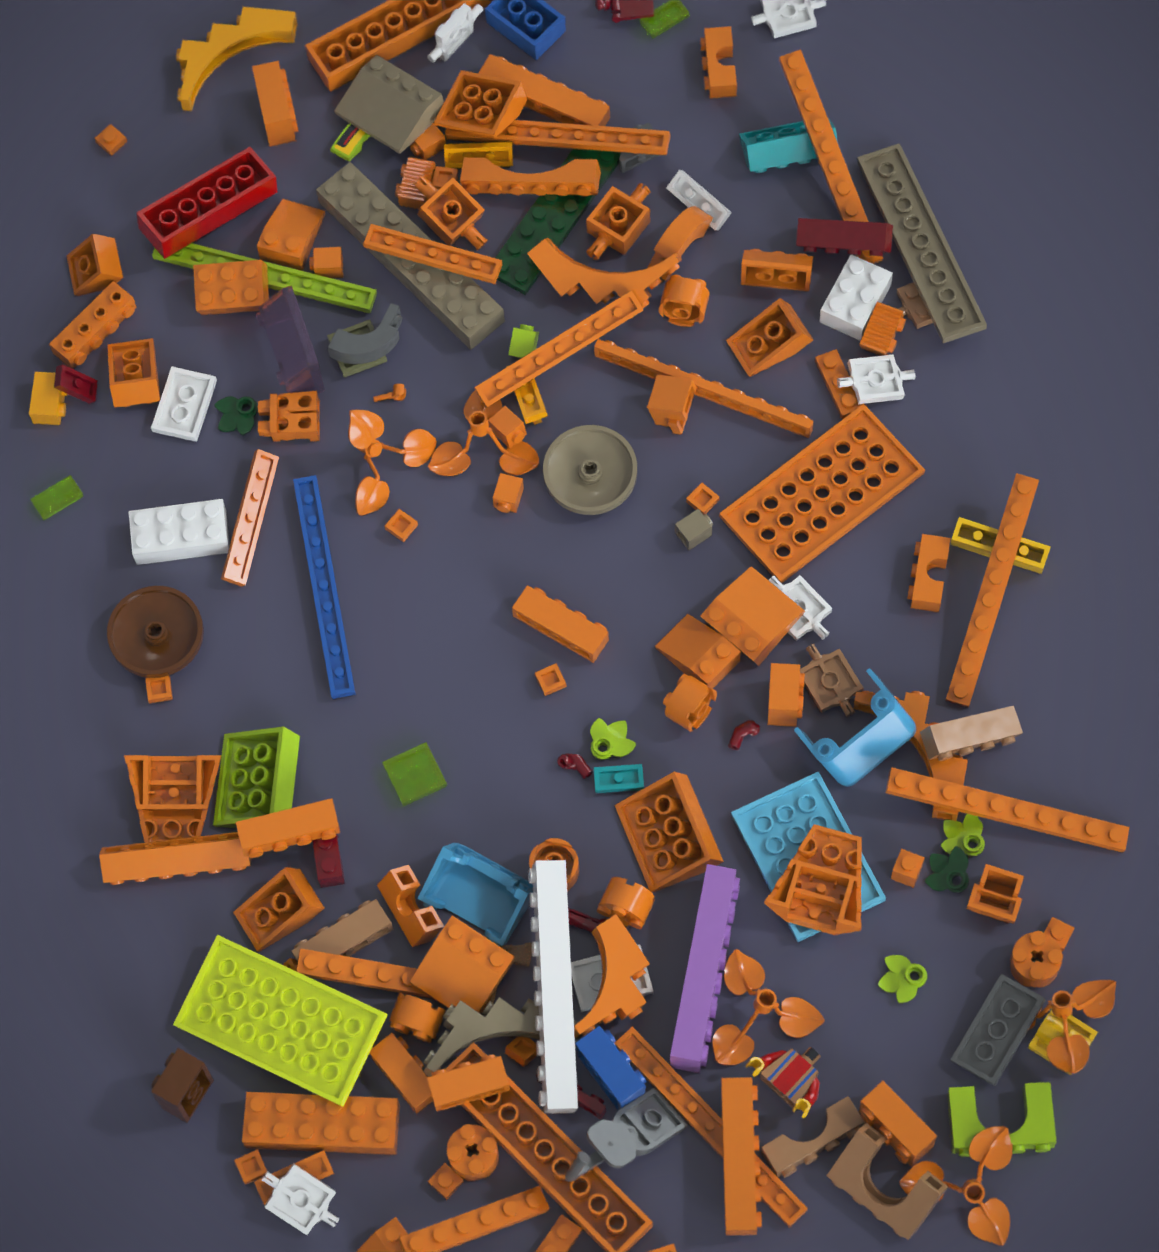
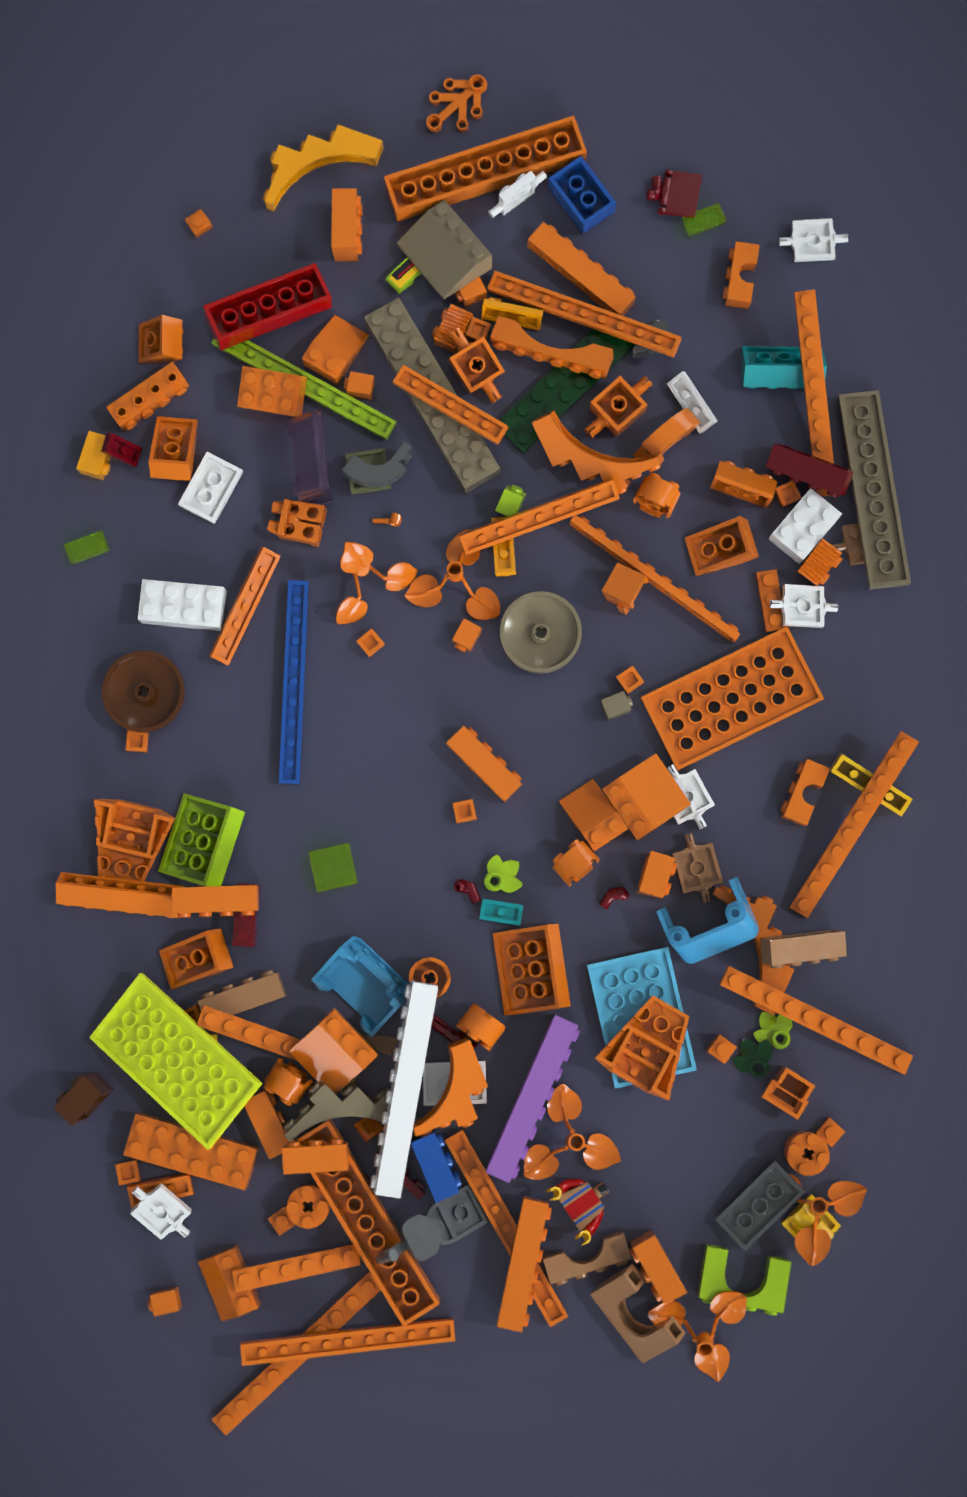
camera: 10 degrees right, 15 degrees up
(234, 416) = (250, 507): dark green plate -> none
(399, 892) = (297, 972): orange arch -> none
(481, 104) = (524, 271): orange slope -> none
(507, 427) = (480, 576): orange brick -> none
(827, 269) = (787, 494): none -> orange plate
(899, 979) = (690, 1139): lime plate -> none

